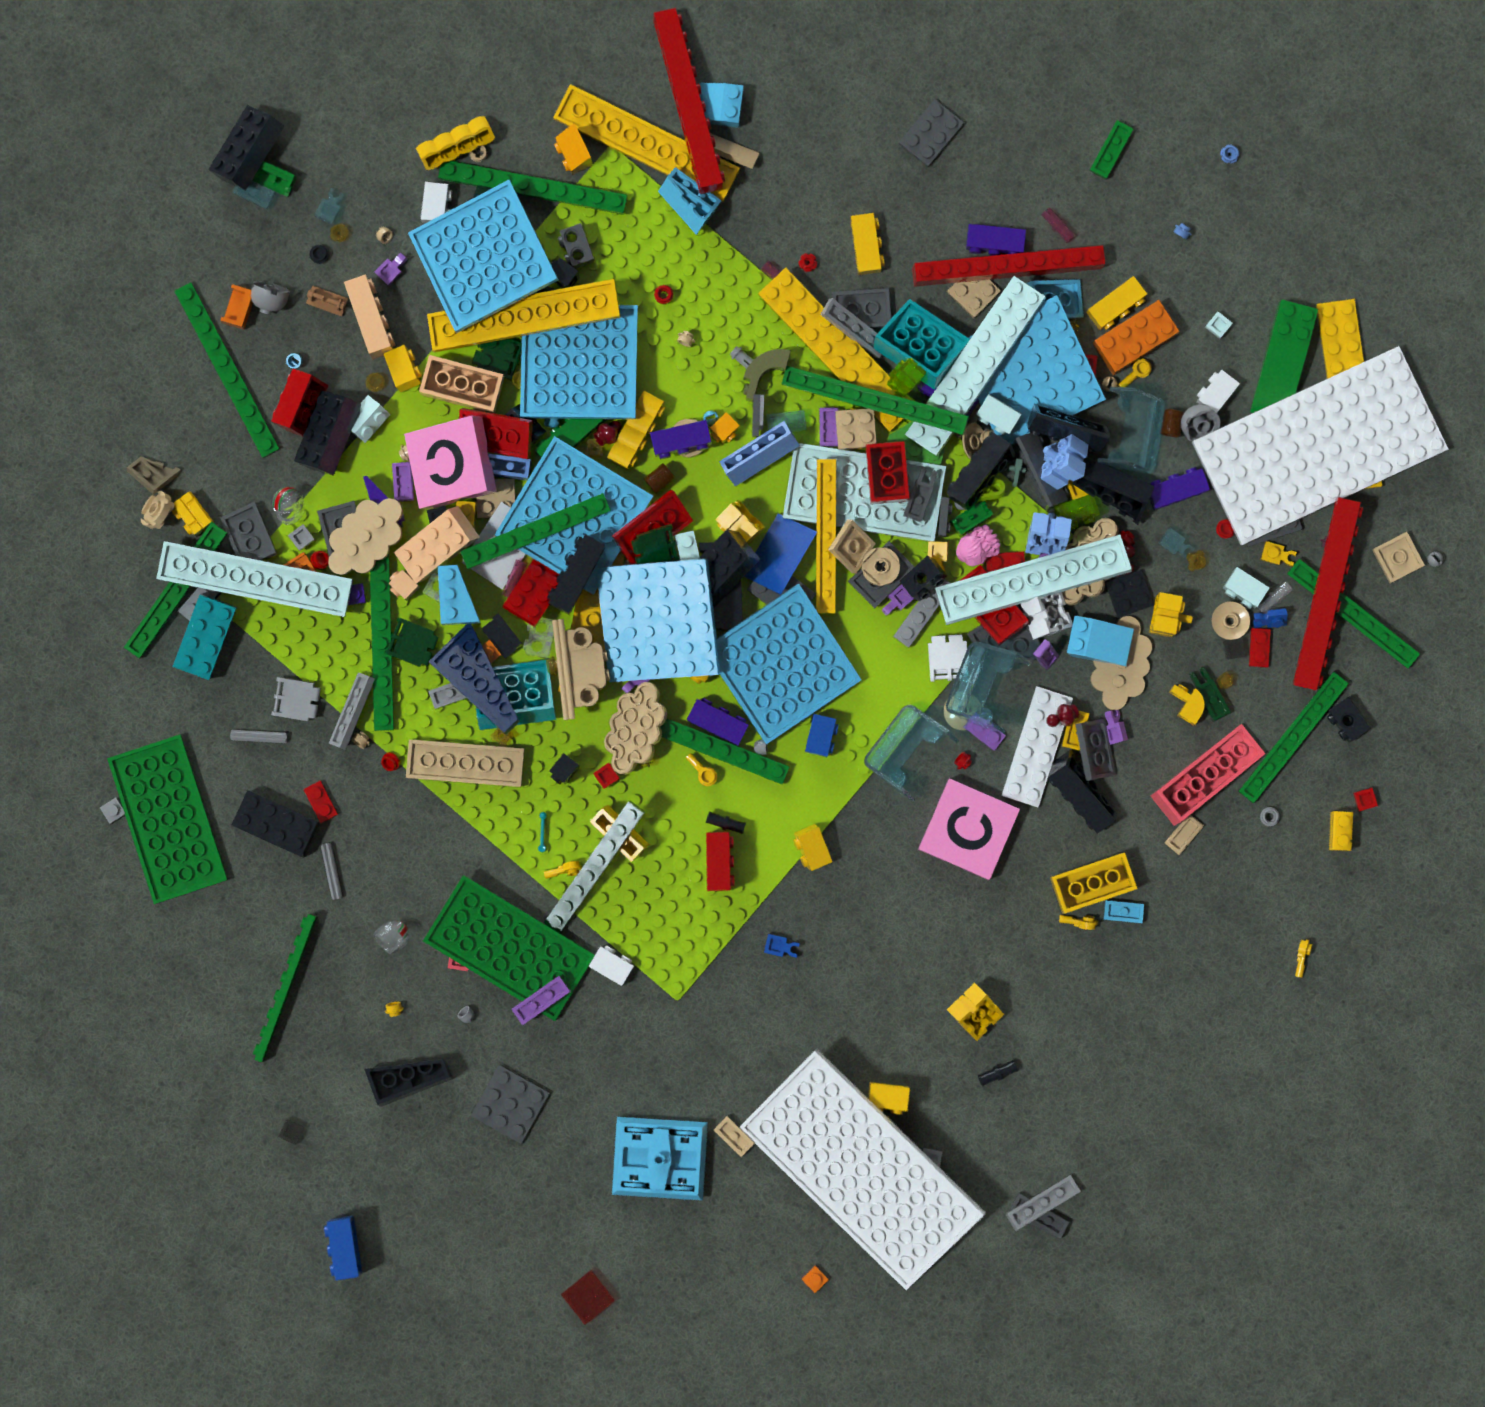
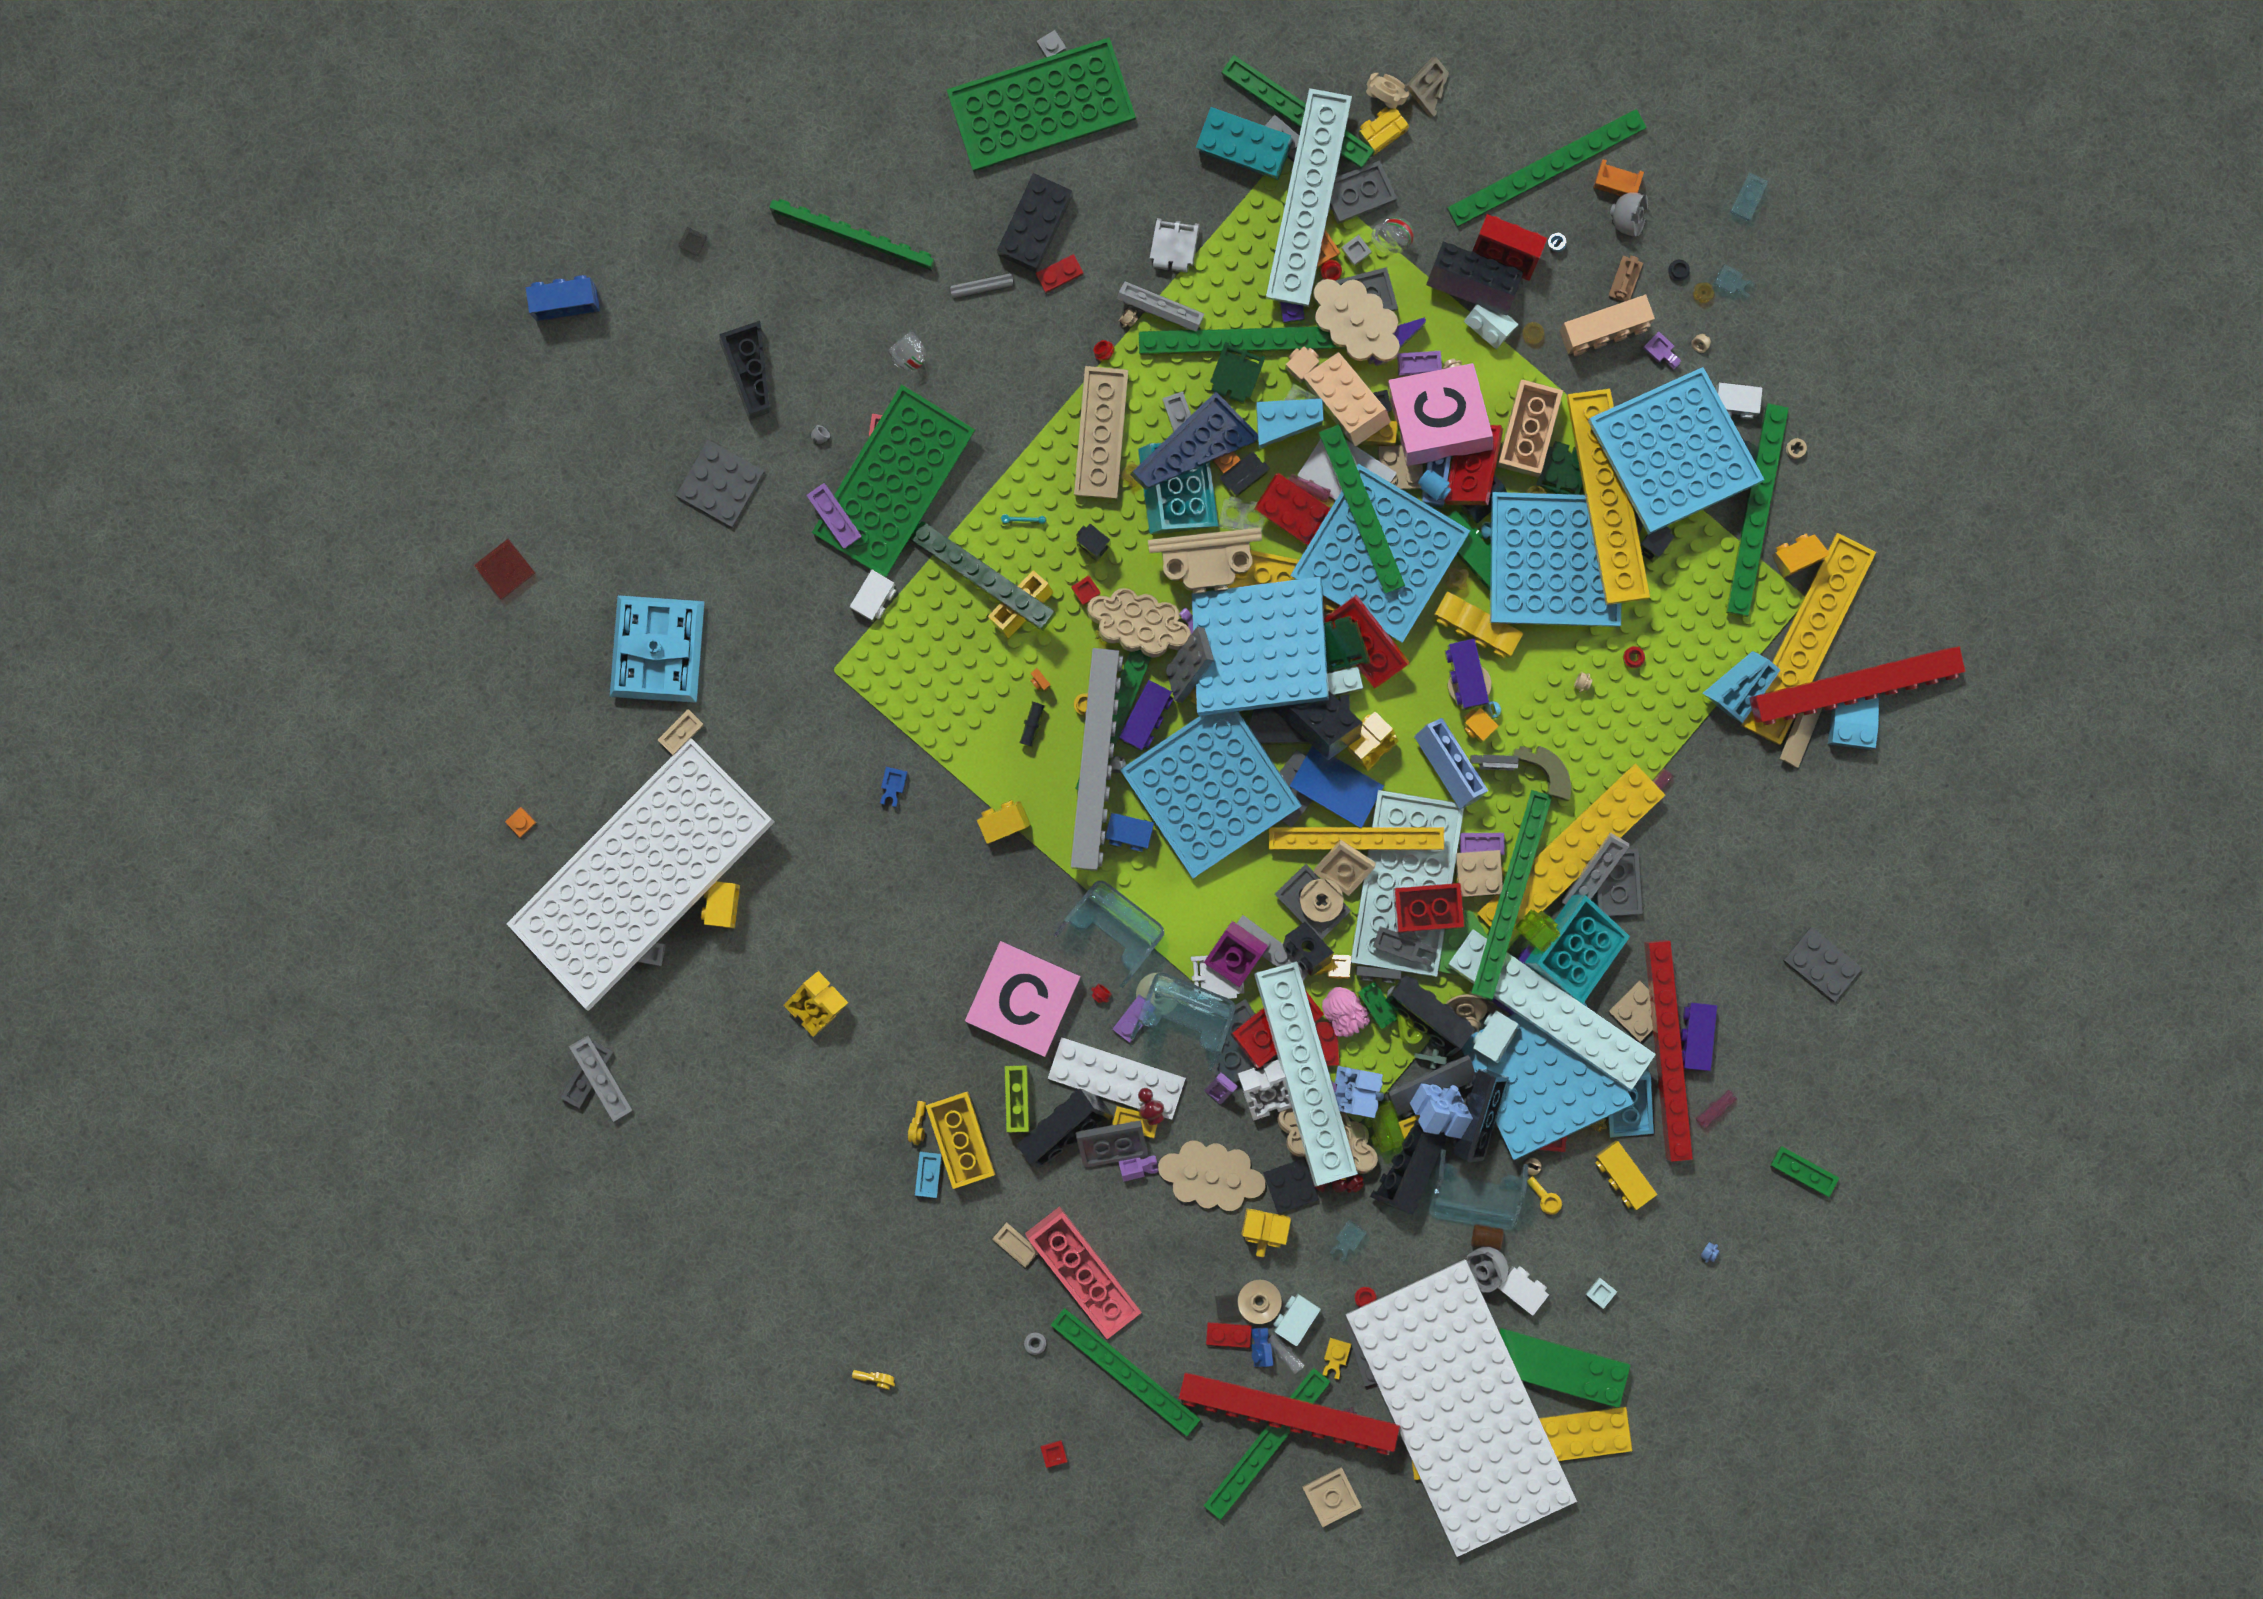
camera: 90 degrees right, 0 degrees up
(246, 147) = (1800, 187): black brick -> none
(258, 736) = (1133, 205): light grey axle -> none
(275, 179) = (1765, 219): green hinge -> none
(394, 1009) = (827, 354): yellow plate -> none
(402, 368) = (1548, 363): yellow brick -> none
(452, 144) = (1805, 417): yellow brick -> none
(514, 467) = (1434, 485): none -> dark azure brick
(552, 665) = (1210, 528): clear yellow plate -> none
(571, 868) = (982, 550): yellow plate -> none
(577, 574) = (1312, 554): black brick -> none
(580, 245) = (1690, 562): dark grey brick -> none
(607, 433) = (1474, 592): dark red animal -> none
(659, 478) = (1423, 651): reddish brown piece -> none
(674, 682) = (1189, 664): none -> dark grey plate
(687, 816) = (1039, 680): none -> orange plate
(719, 861) = (987, 715): red brick -> none
(741, 356) = (1562, 744): light grey pin -> none
(759, 765) = (1094, 759): none -> light grey piece
(794, 420) = (1489, 803): clear light blue plate -> none
(807, 267) = (1671, 815): red plate -> none
(866, 243) = (1693, 889): yellow brick -> none
(899, 598) = (1285, 921): medium lavender plate -> none
(928, 641) = (1235, 954): none -> magenta slope
(997, 1073) = (747, 1029): black pin -> none
(1056, 833) = (1017, 1098): none -> lime brick
(1100, 641) = (1236, 1150): medium azure slope -> none
(1136, 337) = (1586, 1196): orange brick -> none
(1178, 488) = (1412, 1243): dark purple brick -> none
(1193, 703) = (1162, 1257): yellow brick -> none
(1201, 562) = (1327, 1268): clear yellow plate -> none
(1212, 697) = (1173, 1277): dark green hinge -> none
(1225, 680) = (1191, 1294): clear yellow plate -> none
(1229, 149) = (1806, 1308): medium blue plate -> none
(1340, 831) = (1017, 1424): yellow brick -> none
(1358, 725) = (1138, 1446): black brick -> none
(1432, 561) = (1326, 1537): light grey hinge -> none

